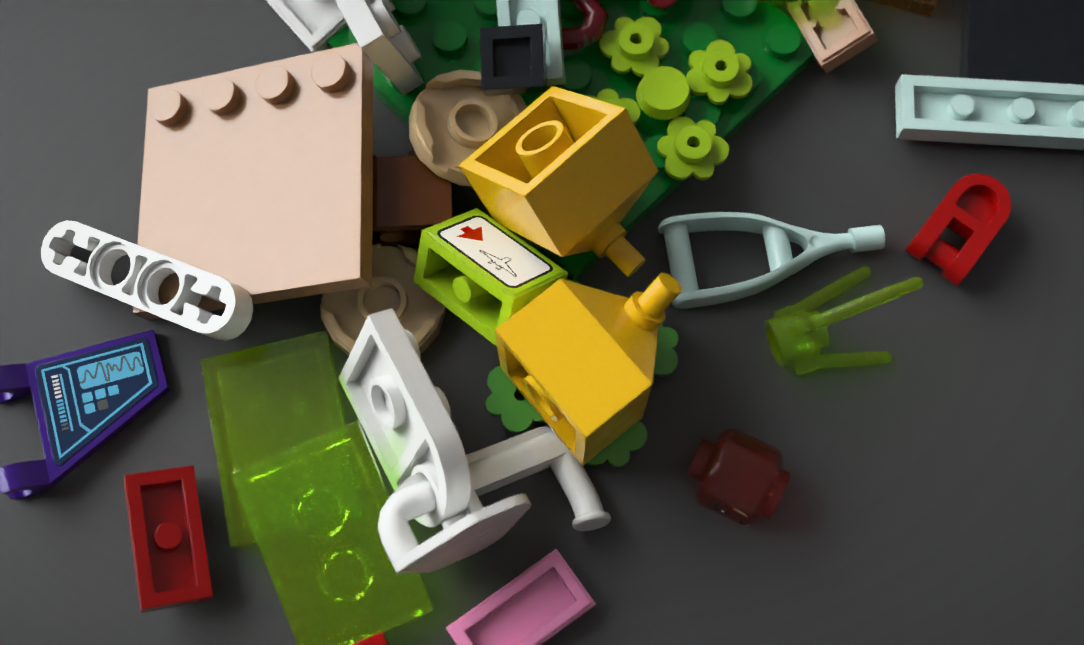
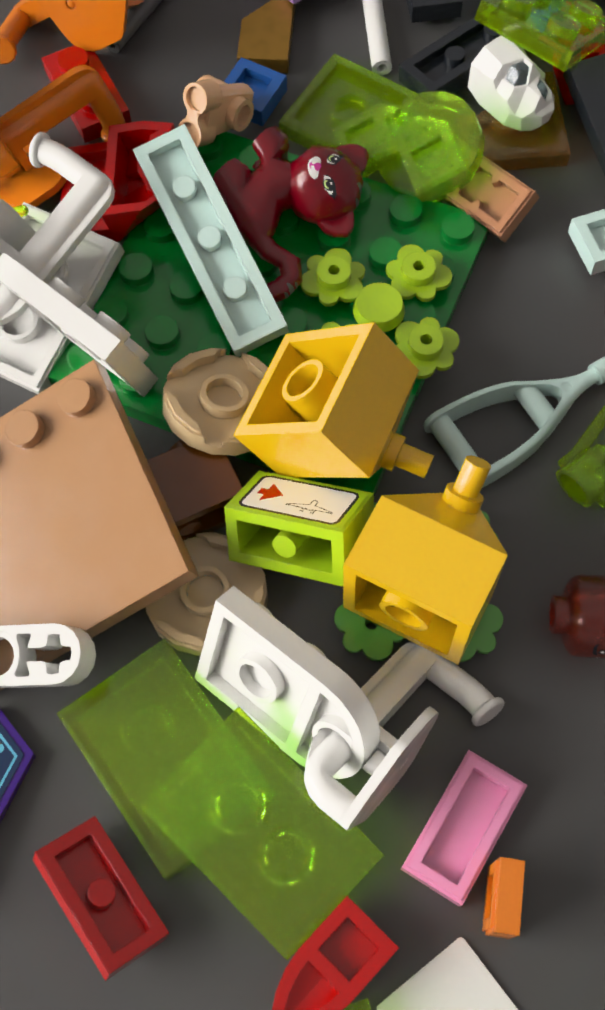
camera: 20 degrees left, 5 degrees down
(513, 59) = (239, 324): black plate -> none

